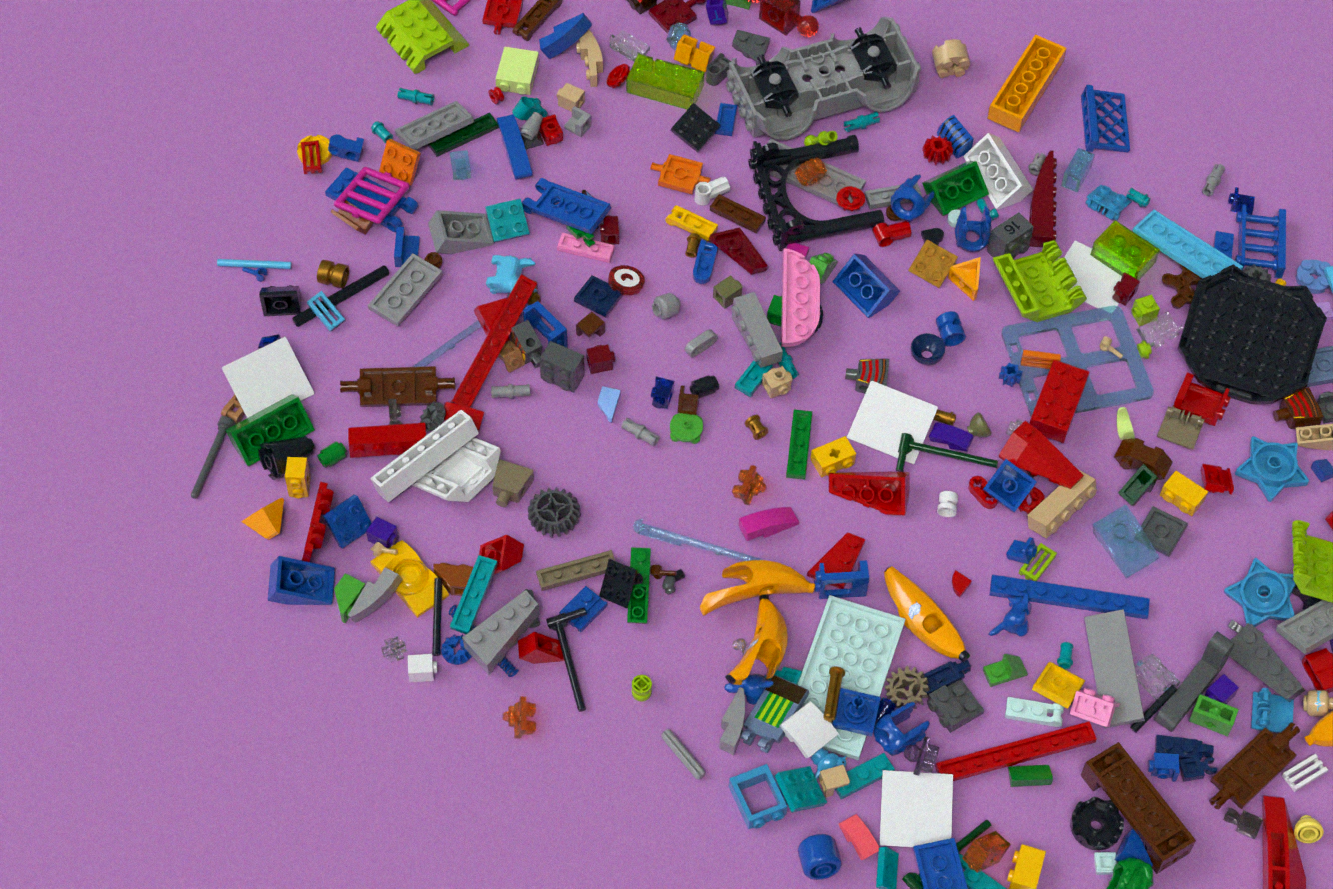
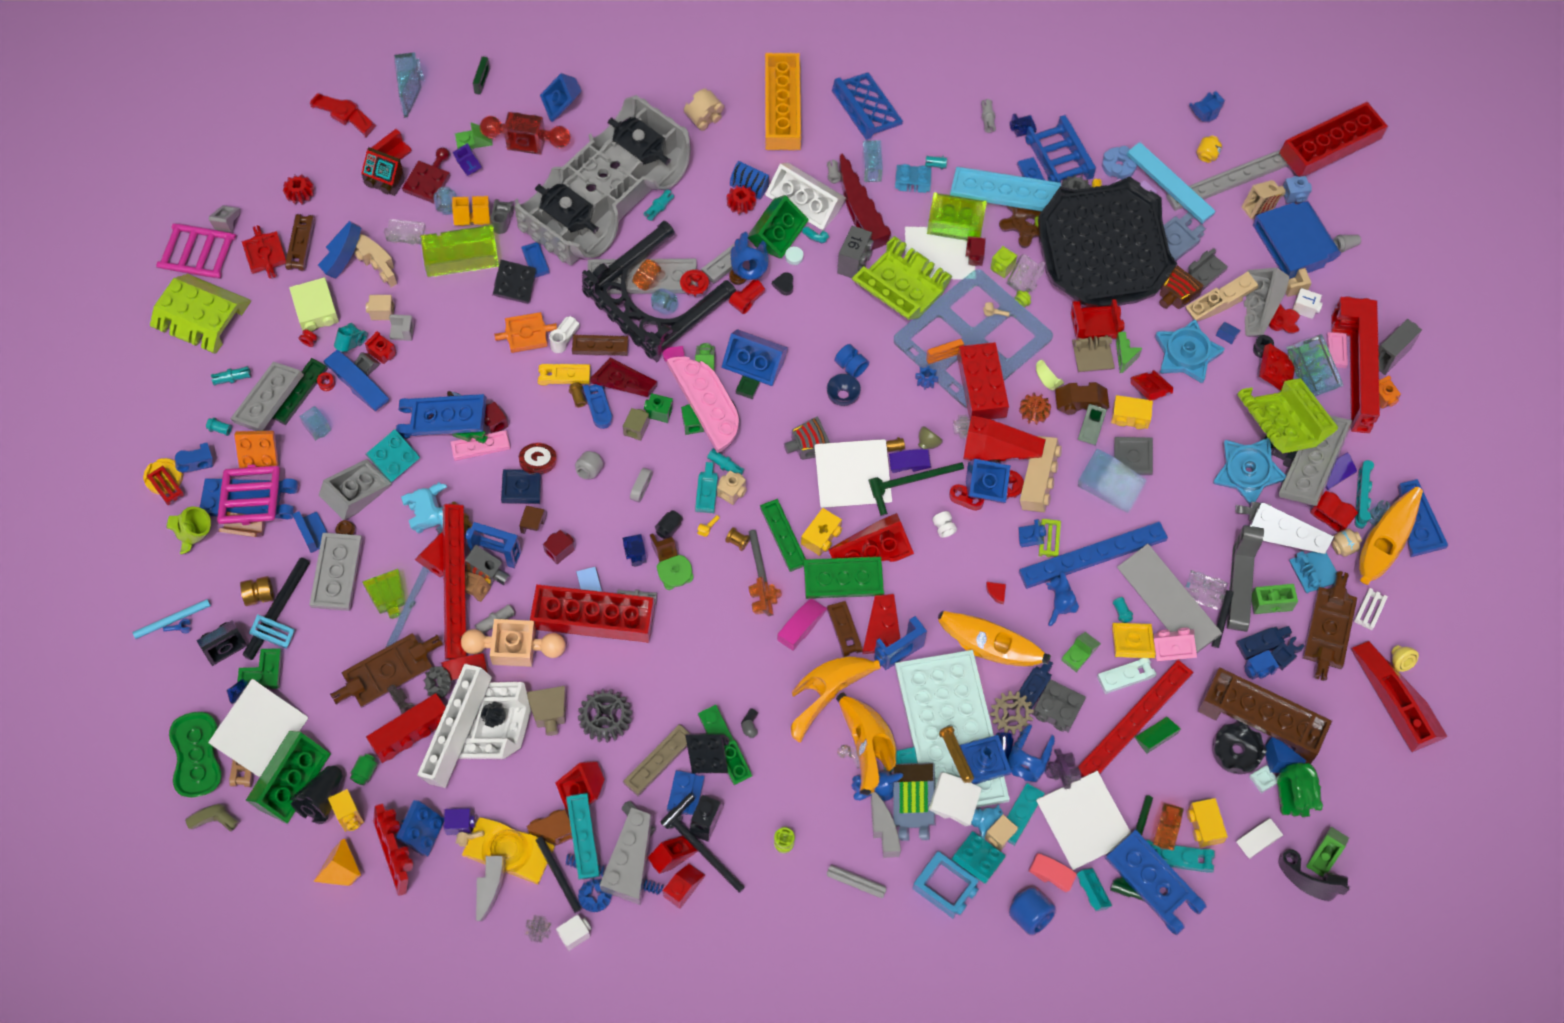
camera: 30 degrees left, 5 degrees up
(193, 427) = (210, 814): none -> olive arm
(204, 386) = (196, 766): none -> green plate
(223, 424) = (240, 795): dark grey piece -> none
(300, 582) = (409, 912): blue slope -> none
(305, 340) = (268, 671): none -> green plate
(310, 197) = (189, 526): none -> lime piece
(347, 593) = (462, 900): bright green slope -> none
(436, 326) = (386, 593): none -> clear neon green torso
(461, 463) = (493, 714): none -> black gear
(490, 132) = (326, 376): none -> red bush
(513, 416) = (513, 643): none -> light nougat brick
(517, 715) = (691, 930): clear orange hips -> none
(531, 127) = (363, 353): light grey cone -> none
(534, 678) = (683, 885): none -> red slope
(562, 366) = (529, 570): dark grey brick -> none
(588, 632) = (706, 816): none -> black torso
(593, 425) = (592, 613): none -> red brick
(618, 75) = (415, 260): red gear -> none
(657, 572) = (732, 723): reddish brown hand -> none
(677, 539) = (728, 682): clear light blue bar -> none
(733, 407) = (704, 530): none -> yellow hand
(750, 44) = (516, 178): dark grey wing -> none
(756, 284) = (659, 407): none -> green brick
(756, 330) = (686, 448): light grey wedge -> none
(766, 448) = (757, 555): none -> dark grey bar
(803, 544) = (844, 628): none -> reddish brown plate
(815, 203) = (664, 301): none -> clear light blue head
(823, 138) = (640, 237): lime pin -> none
(828, 503) = (843, 577): none -> green plate
(845, 308) = (747, 387): none -> dark green tile
(933, 263) = (800, 307): pearl gold hinge -> none
(966, 276) = (838, 306): light orange slope -> none
(982, 228) = (826, 254): blue piece -> none
(1094, 447) = (1041, 410): none -> clear orange gear
(1212, 443) = (1125, 354): none -> bright green slope
(1222, 690) = (1266, 573): dark purple brick -> none
(1246, 822) = (1352, 679): clear smoke plate -> none

